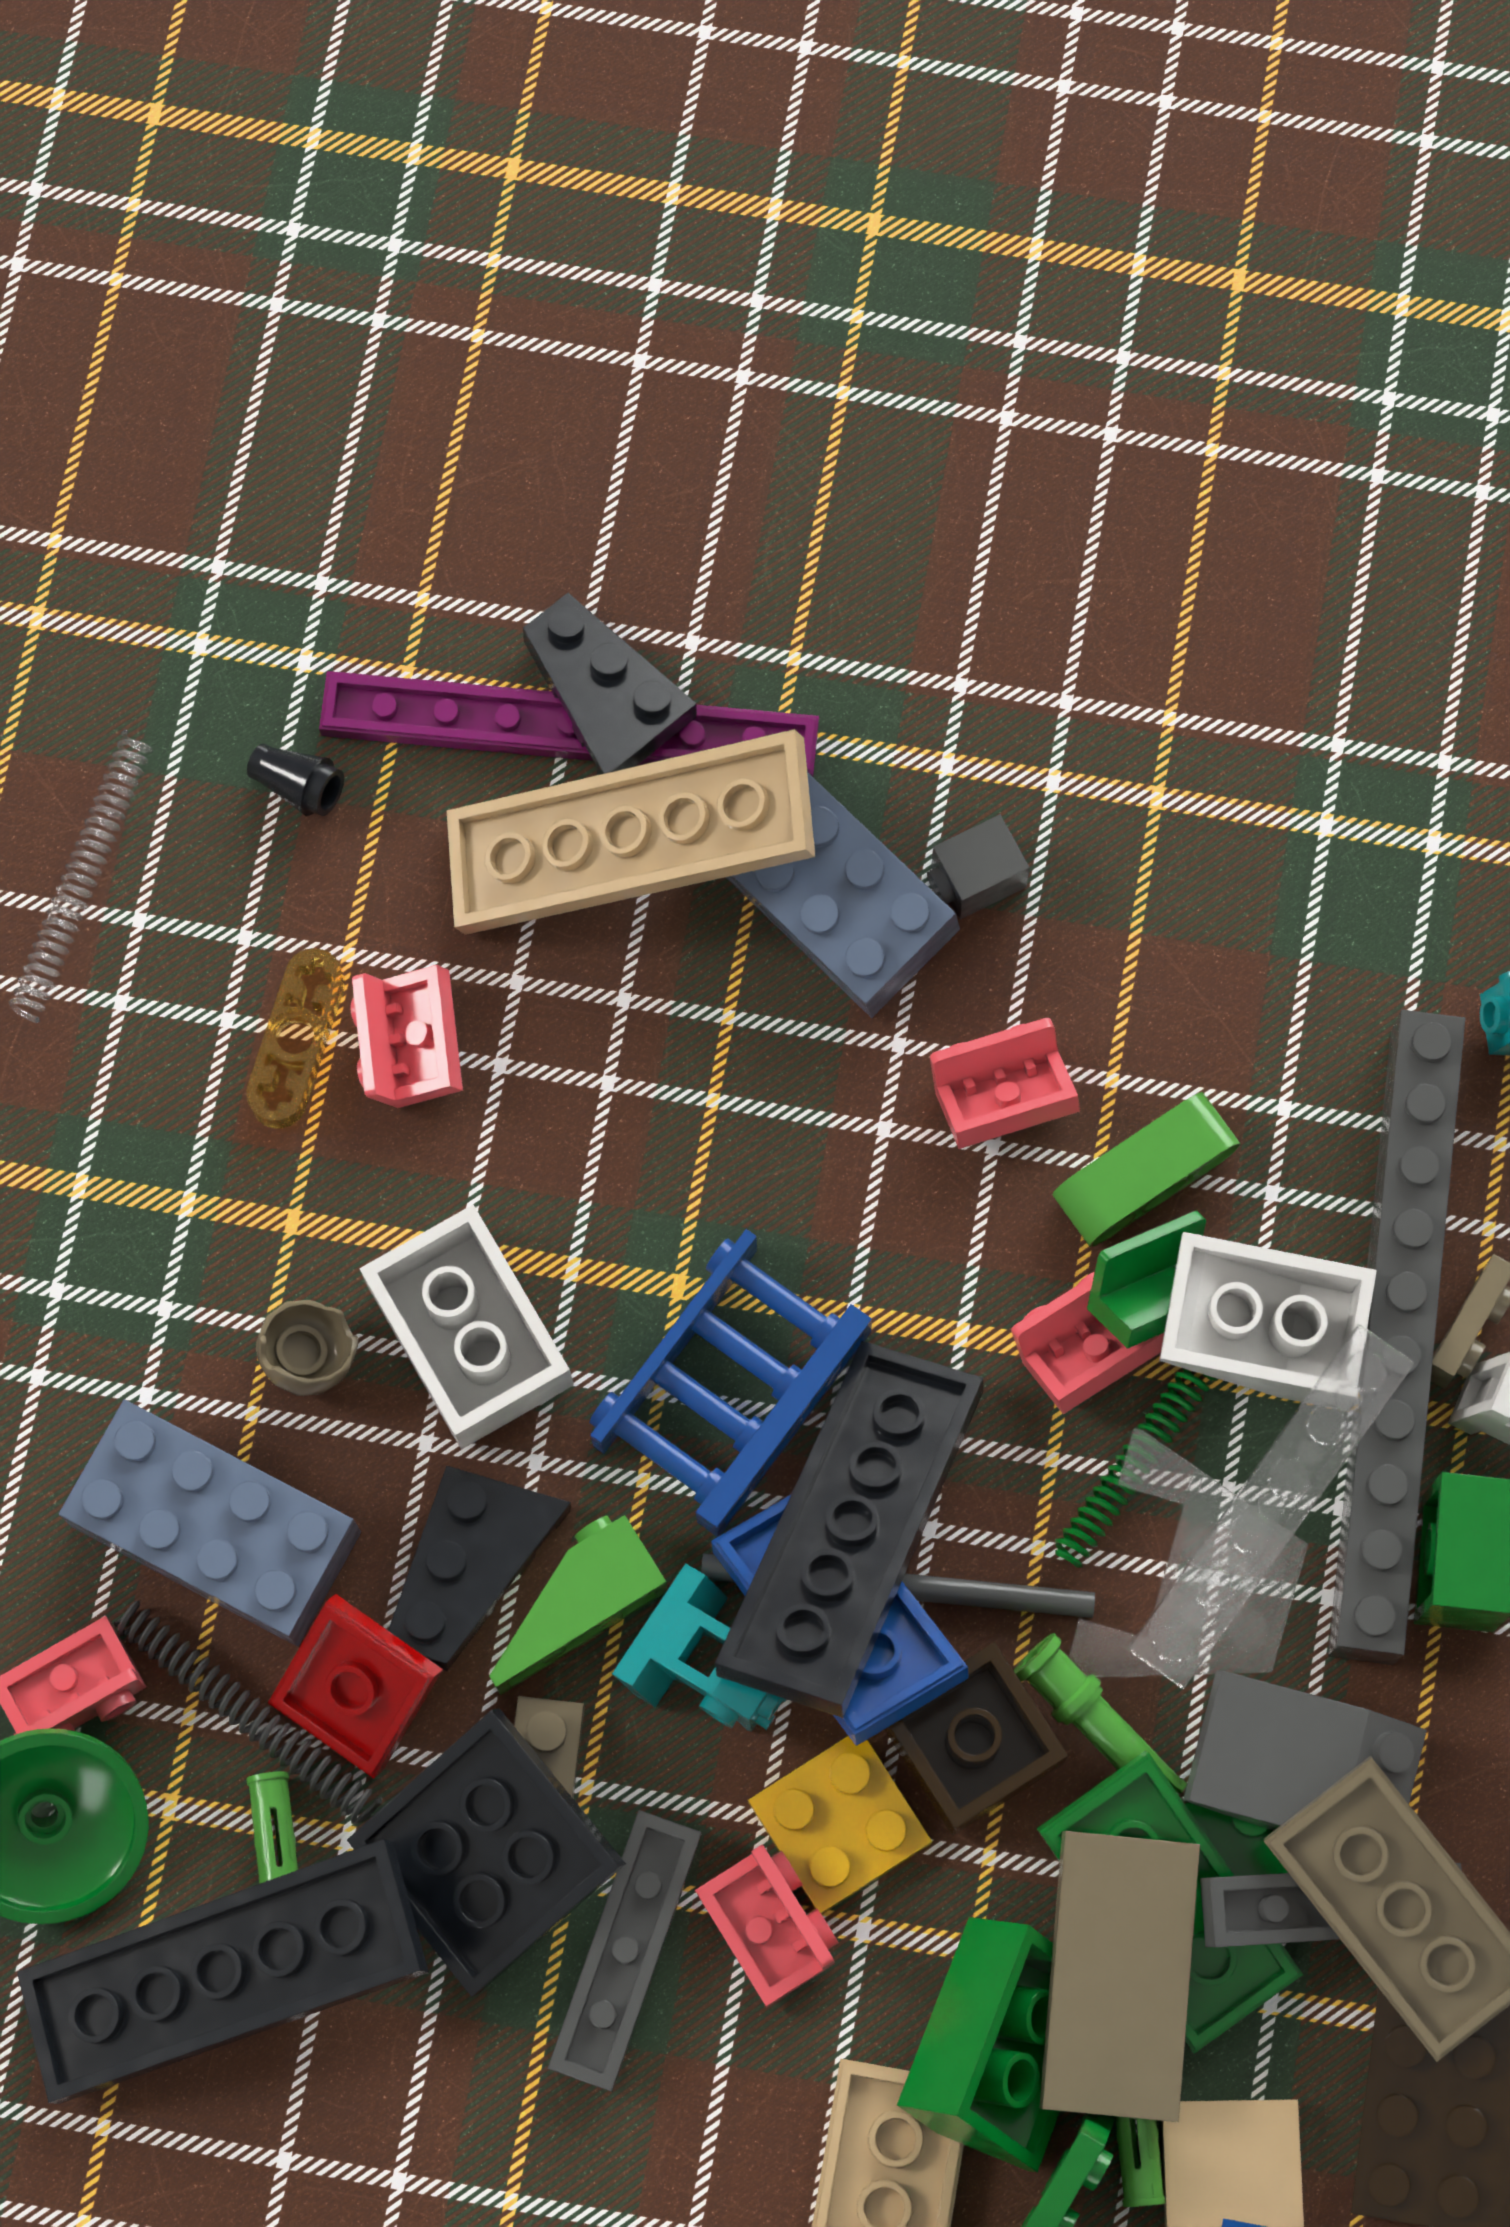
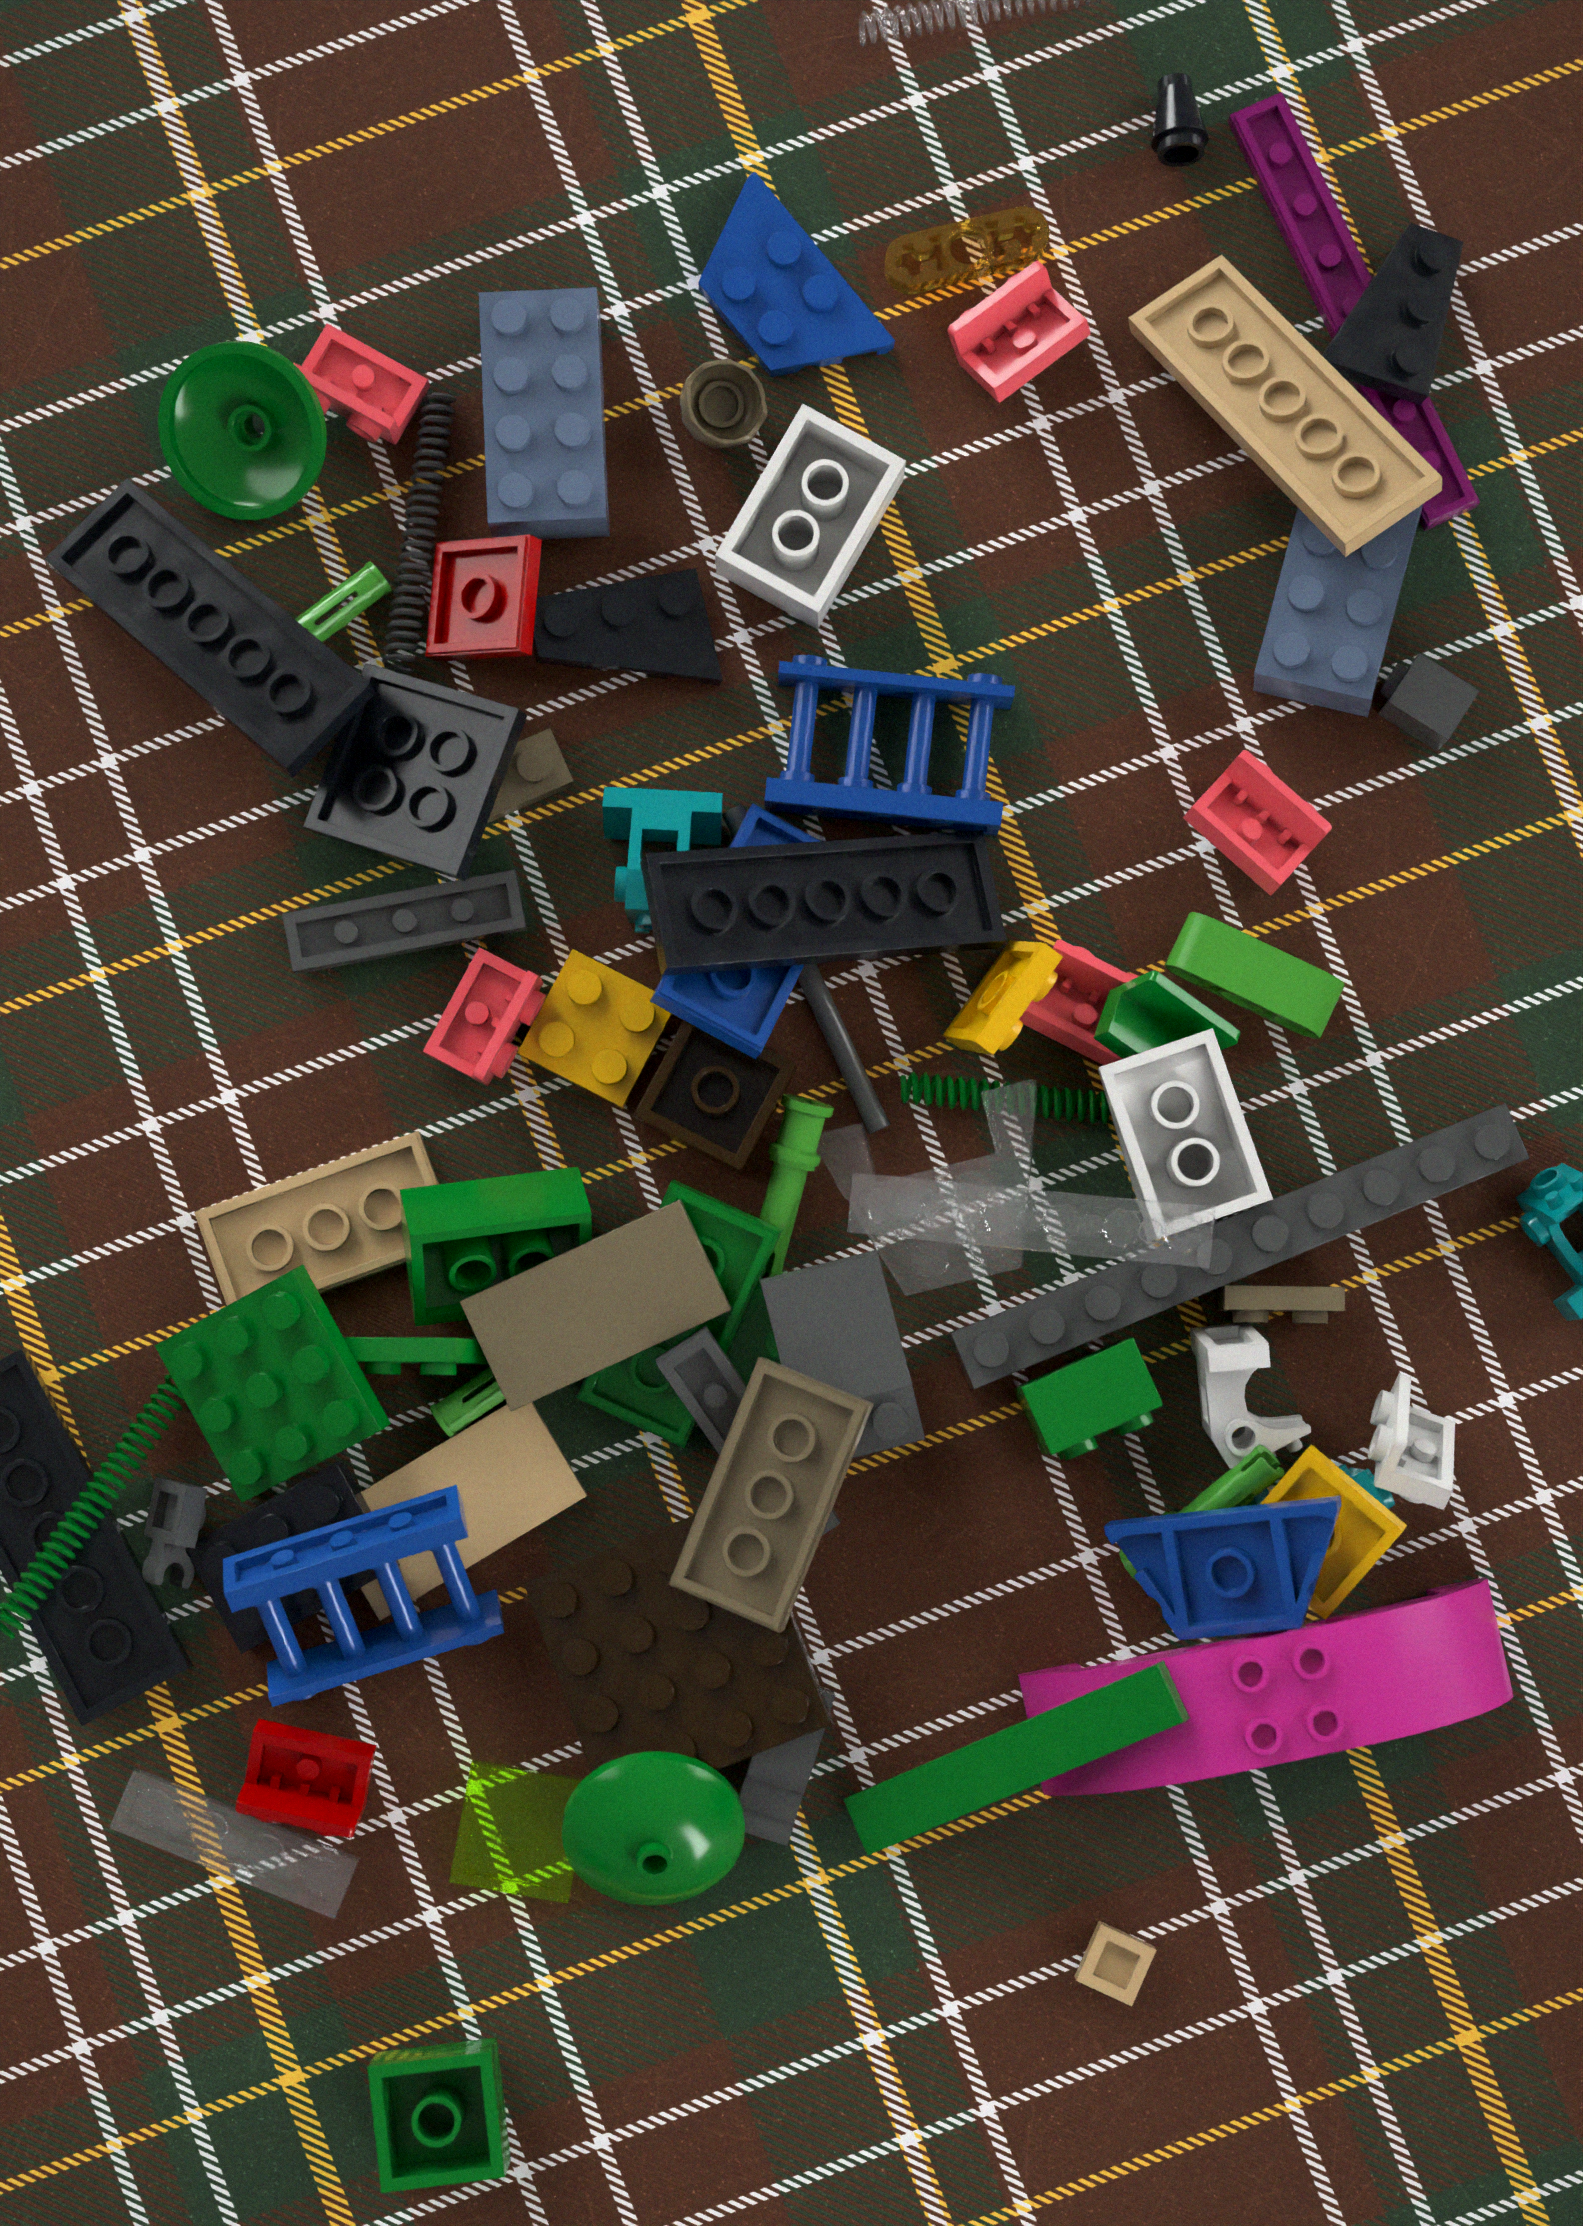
camera: 55 degrees right, 10 degrees up
(228, 1229) = (784, 291): none -> blue wing
(588, 1593) = (655, 732): bright green slope -> none
(1039, 1411) = (994, 1008): none -> yellow plate

